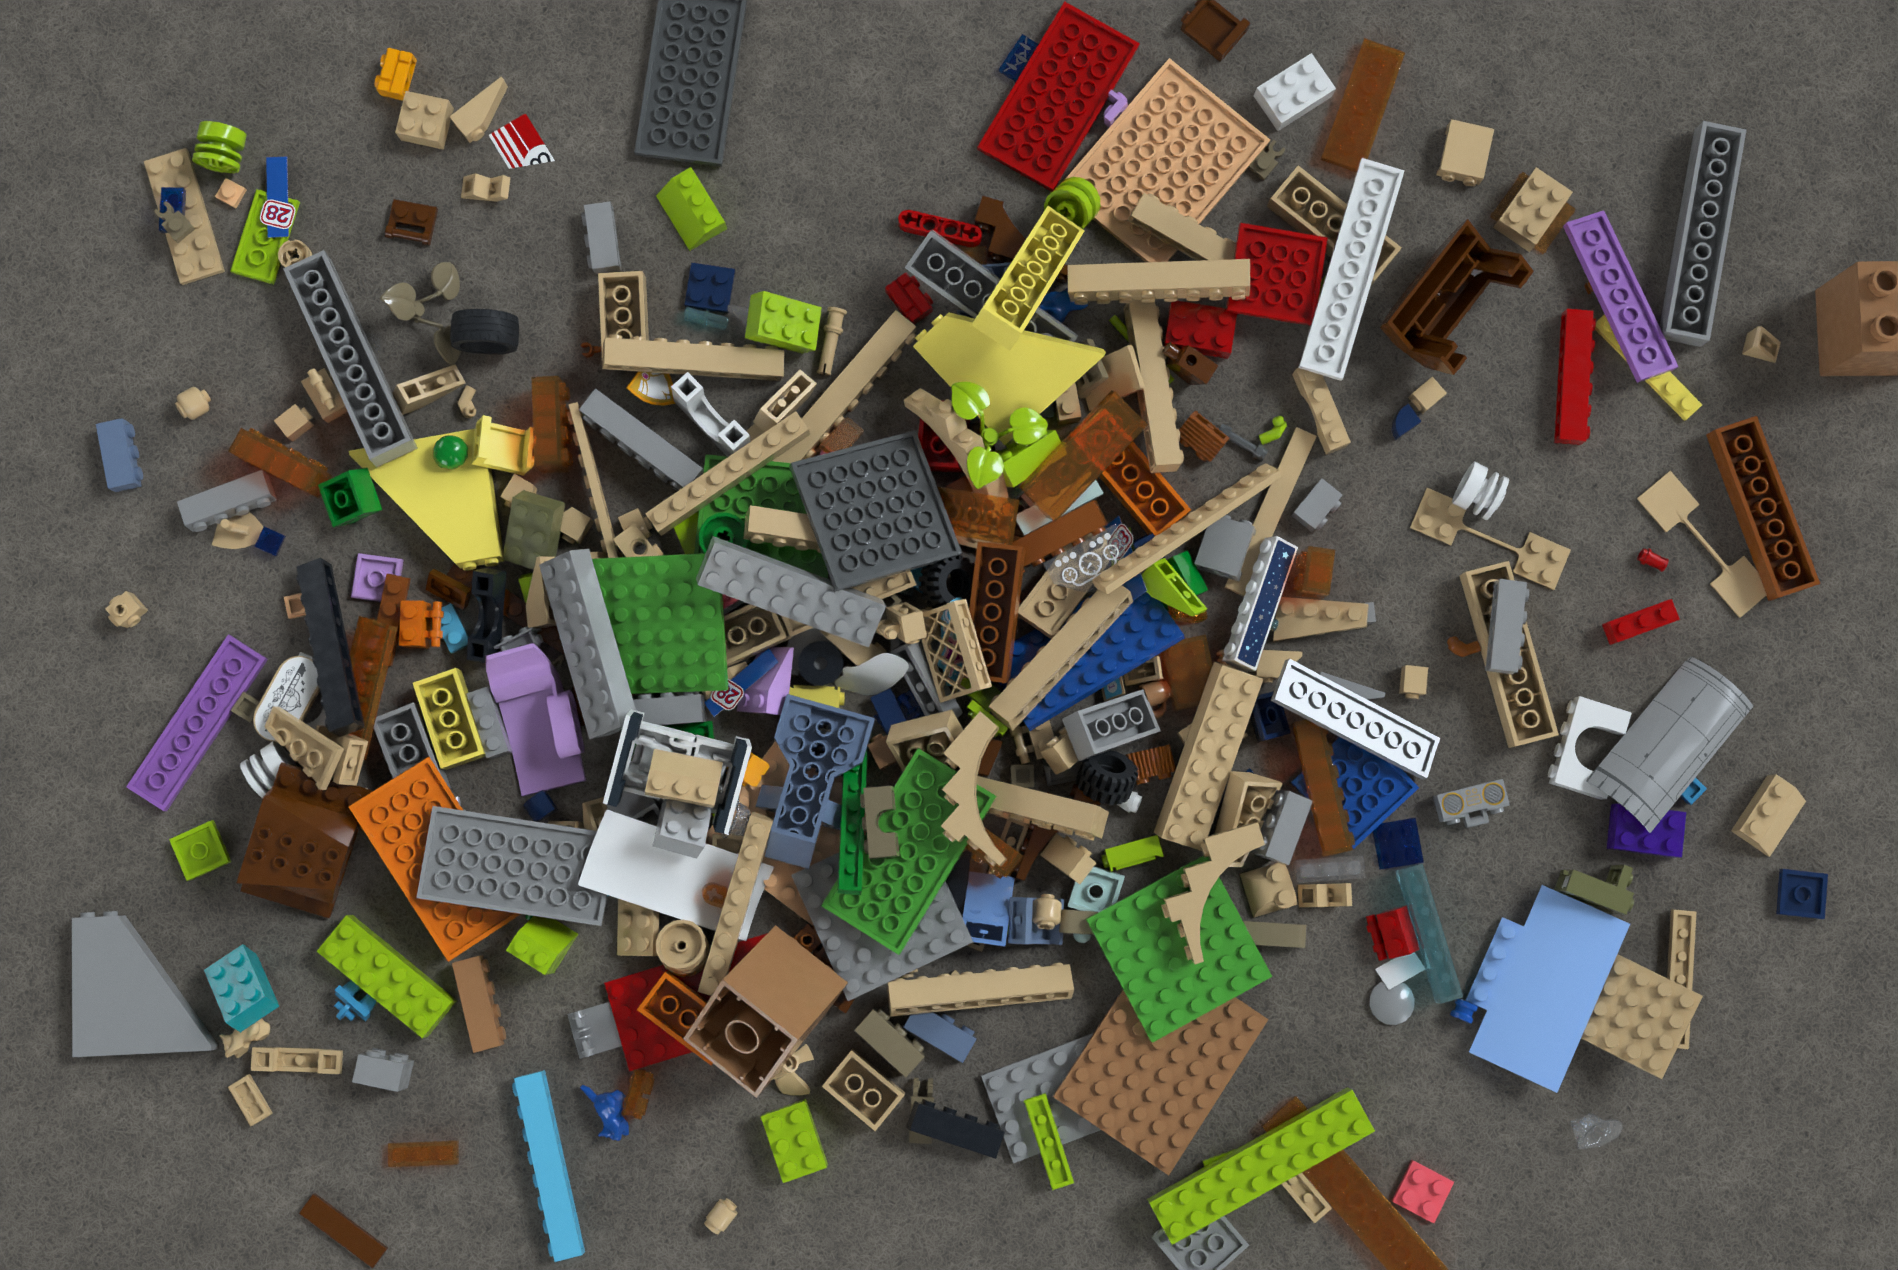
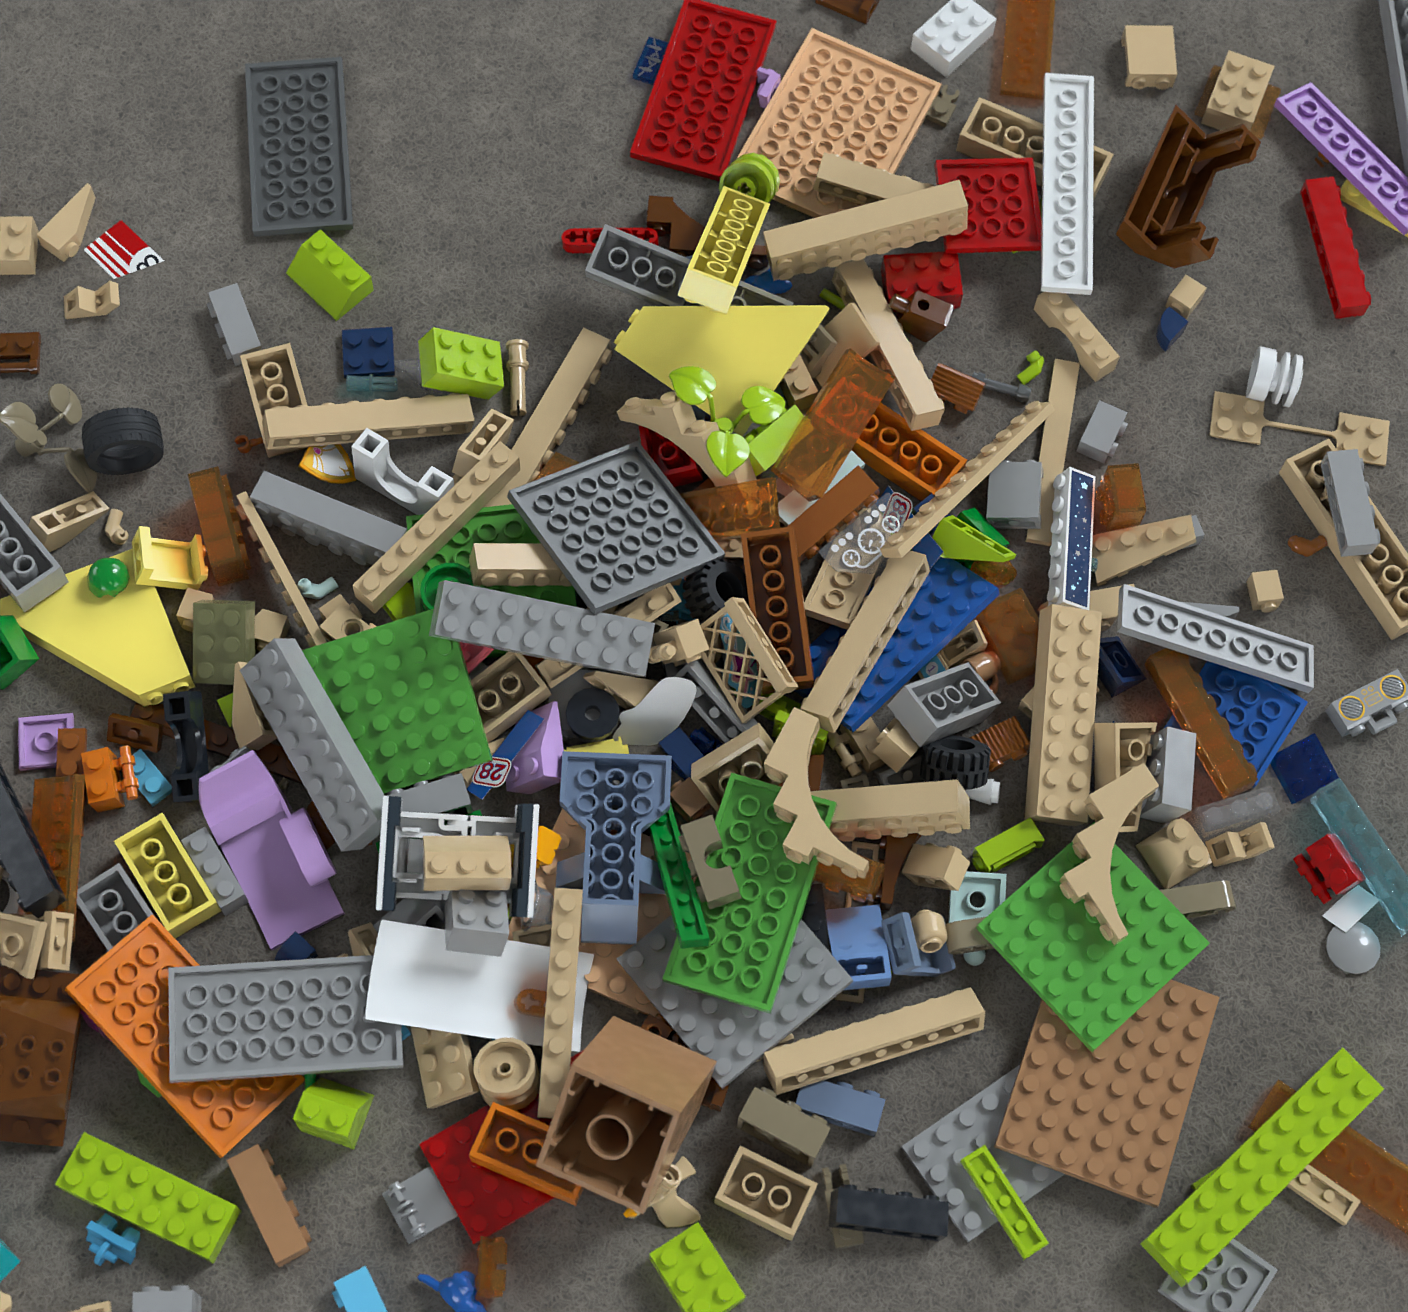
camera: 15 degrees left, 15 degrees down
(620, 496) = (316, 591): none -> light aqua arm
(909, 299) = (593, 314): red brick -> none

